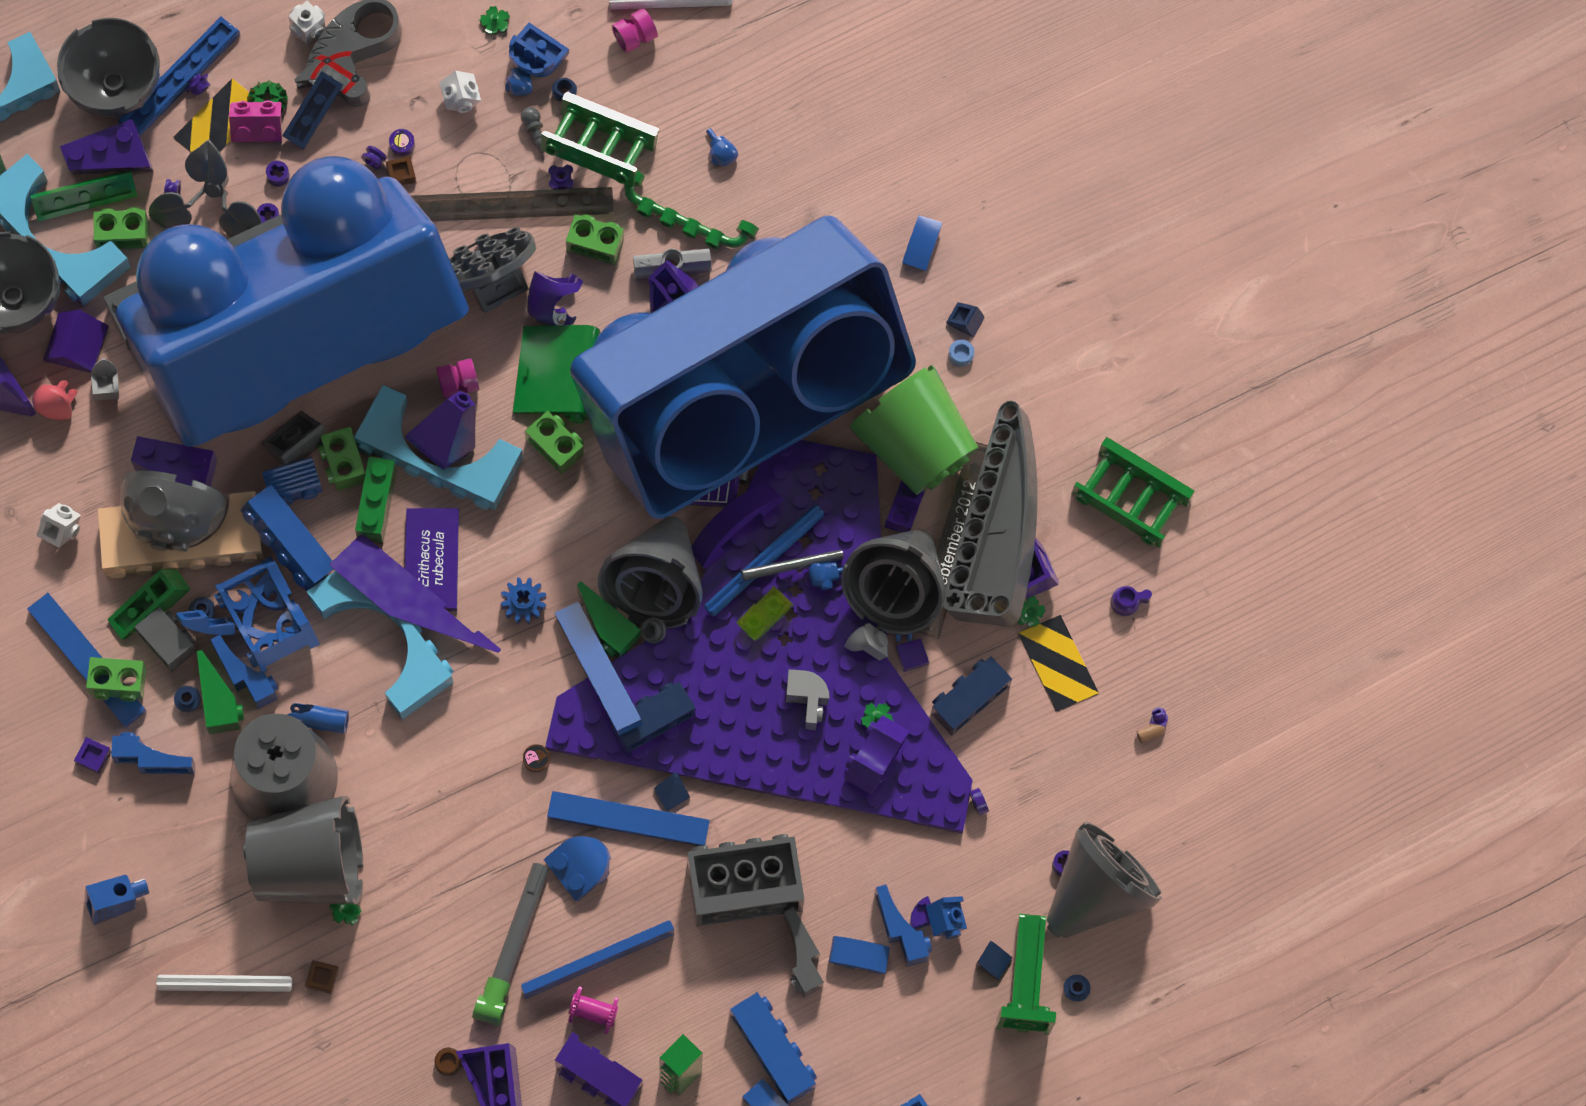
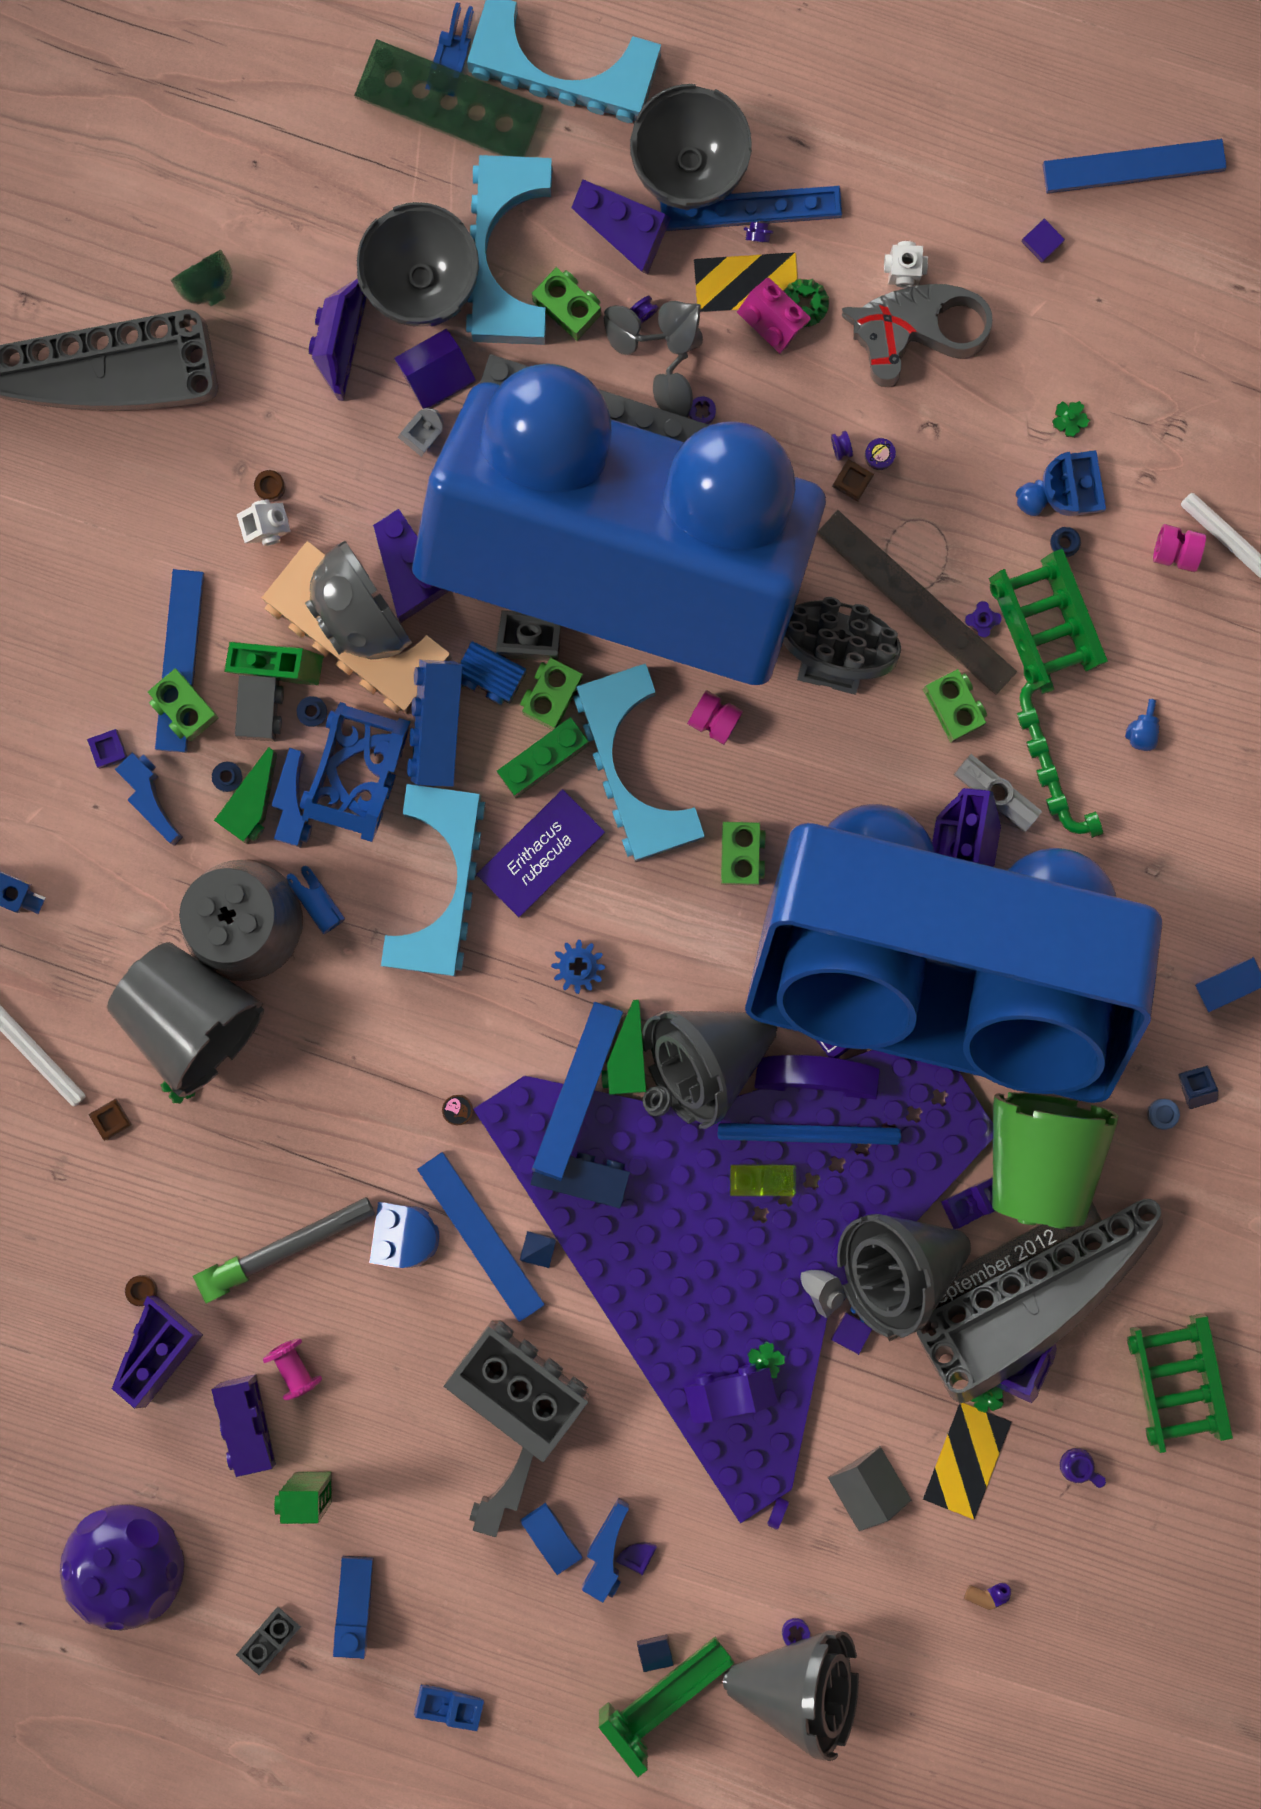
camera: 50 degrees right, 15 degrees up
(37, 503) = (269, 485): none -> reddish brown tile
(53, 401) = (363, 407): coral piece -> none
(84, 195) = (565, 242): green plate -> none
(199, 622) = (292, 723): blue slope -> none
(281, 167) = (756, 375): dark purple bush -> none
(312, 110) = (830, 352): dark blue plate -> none
(400, 592) = (482, 860): dark purple sticker -> none
(447, 432) = (654, 759): dark purple slope -> none
(460, 91) = (972, 458): white brick -> none
(531, 119) = (1010, 541): dark grey bar -> none
(545, 294) = (861, 719): dark purple piece -> none
(545, 367) = (805, 785): green door -> none
(597, 959) = (338, 1329): blue tile -> none
(773, 1048) = (403, 1545): blue brick -> none
(791, 565) = (826, 1162): dark grey bar -> none
(810, 690) = (733, 1287): light grey brick -> none
(824, 575) = (845, 1197): blue piece -> none
(947, 917) = (651, 1583): blue brick -> none
(970, 695) = (863, 1417): dark blue brick -> none
(1018, 735) = (870, 1489): none -> dark grey slope
(1071, 994) = (698, 1735): dark blue plate -> none

